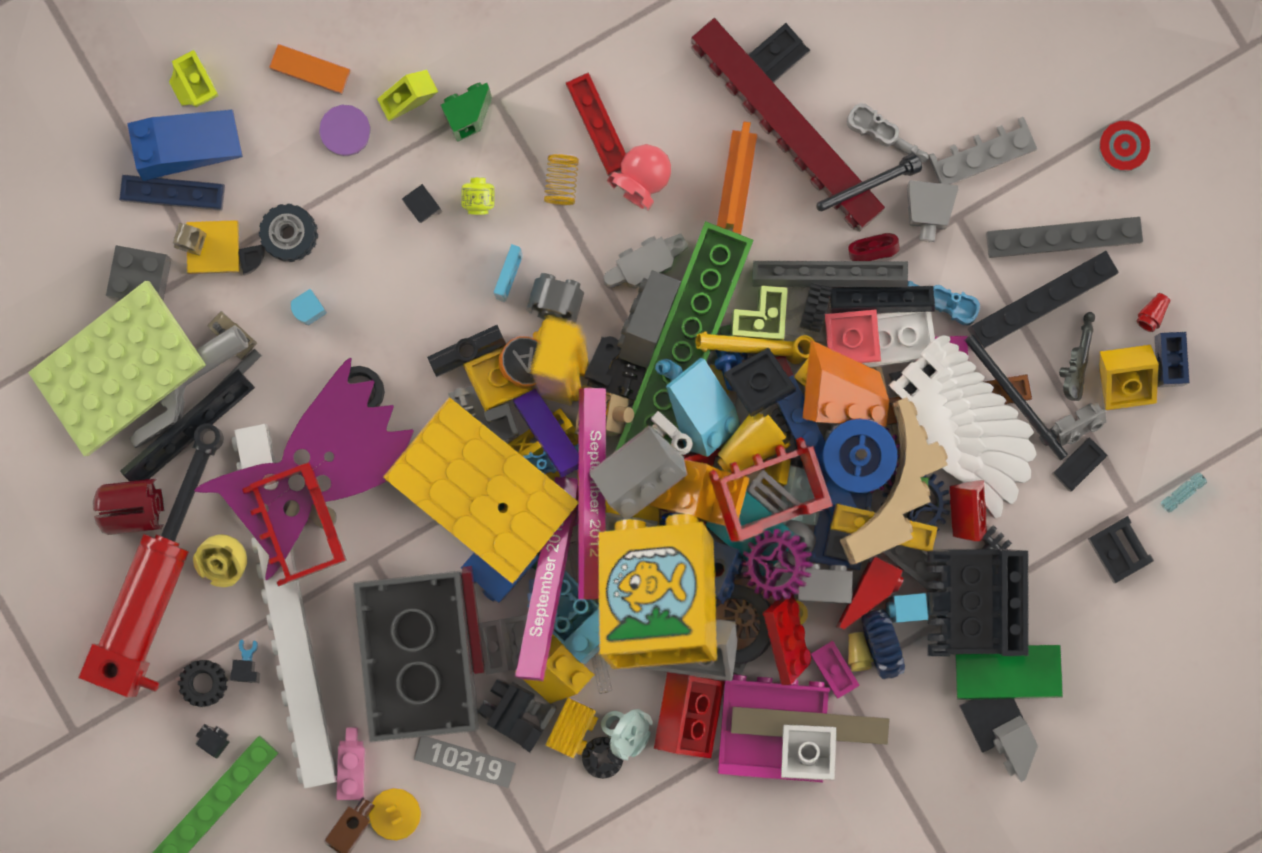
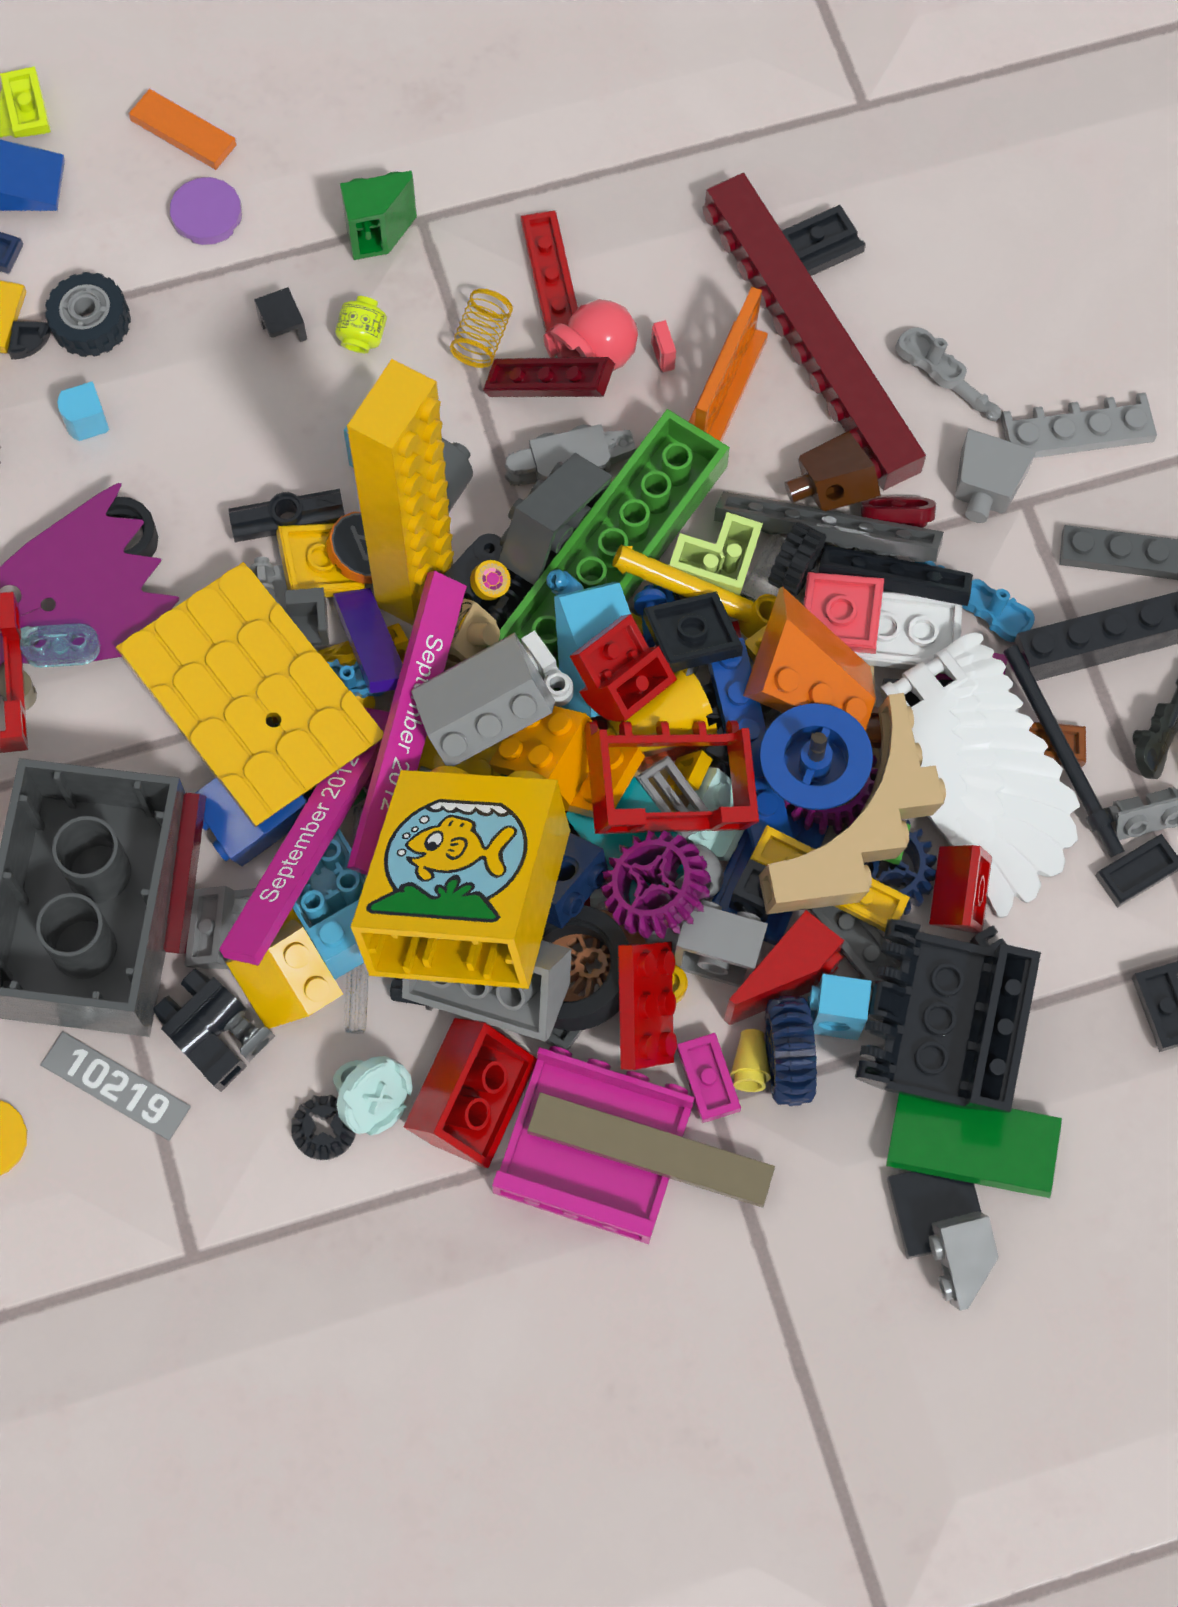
camera: 10 degrees right, 15 degrees down
(346, 485) = (58, 646): none -> clear light blue plate
(407, 94) = (303, 181): neon yellow slope -> none
(571, 728) = (288, 1069): yellow brick -> none
(616, 372) = (490, 580): none -> tile
(618, 213) = (549, 377): none -> dark red tile
(688, 162) = (663, 346): none -> coral tile
(722, 427) = (621, 670): none -> red brick
(808, 752) = (639, 1182): white slope -> none
(826, 236) = (835, 475): none -> reddish brown torso
(908, 166) = (969, 416): black piece -> none

